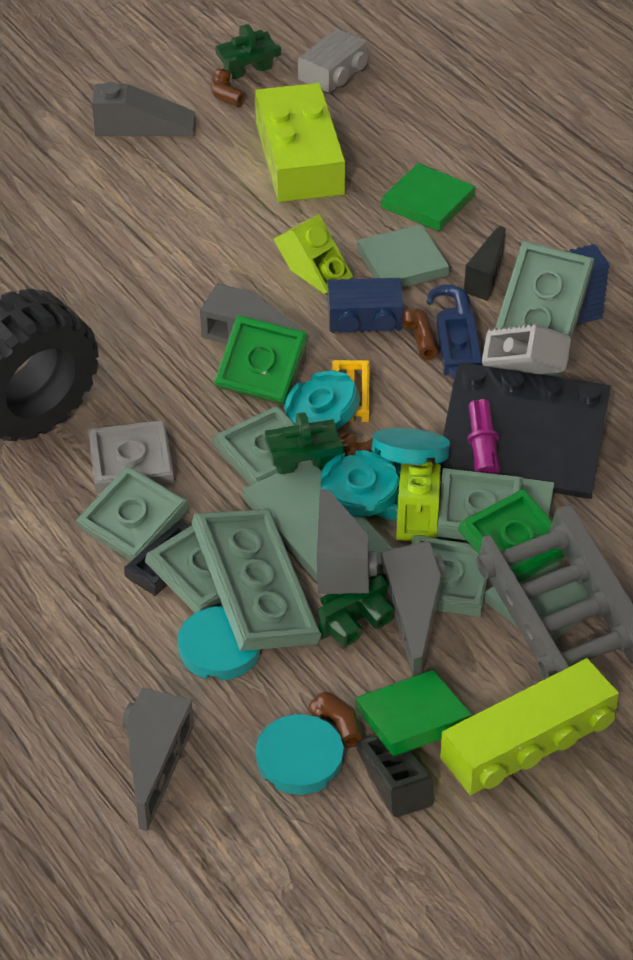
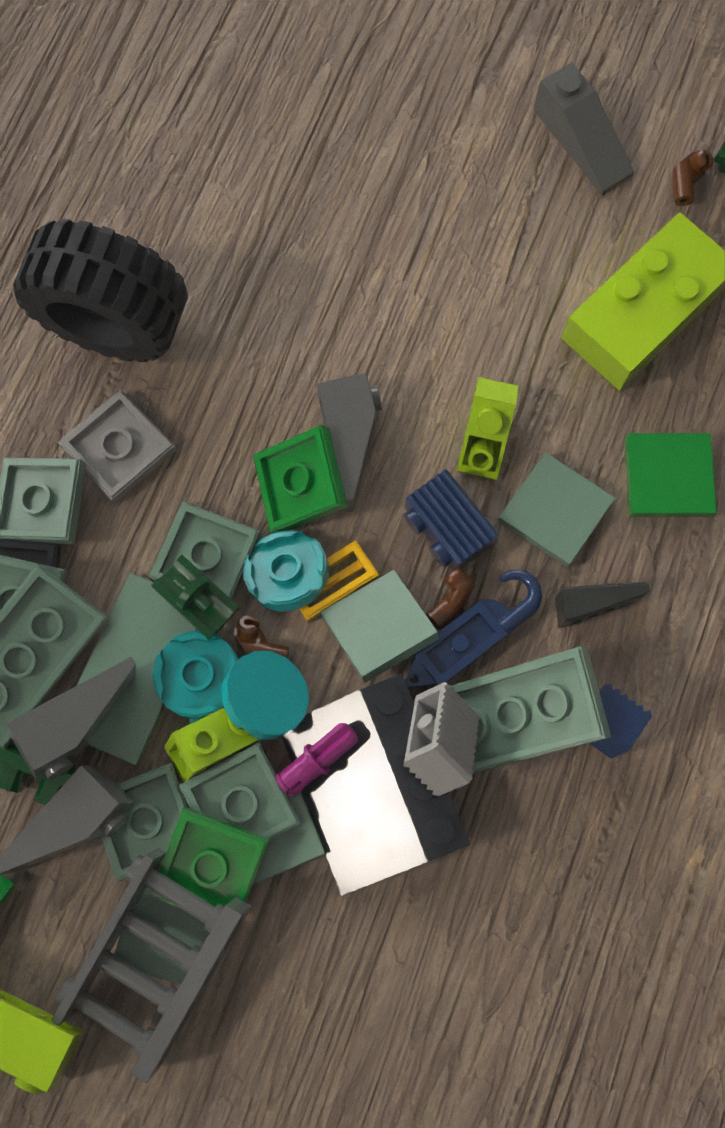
camera: 55 degrees right, 30 degrees up
(409, 373) = (379, 626): none -> sand green tile

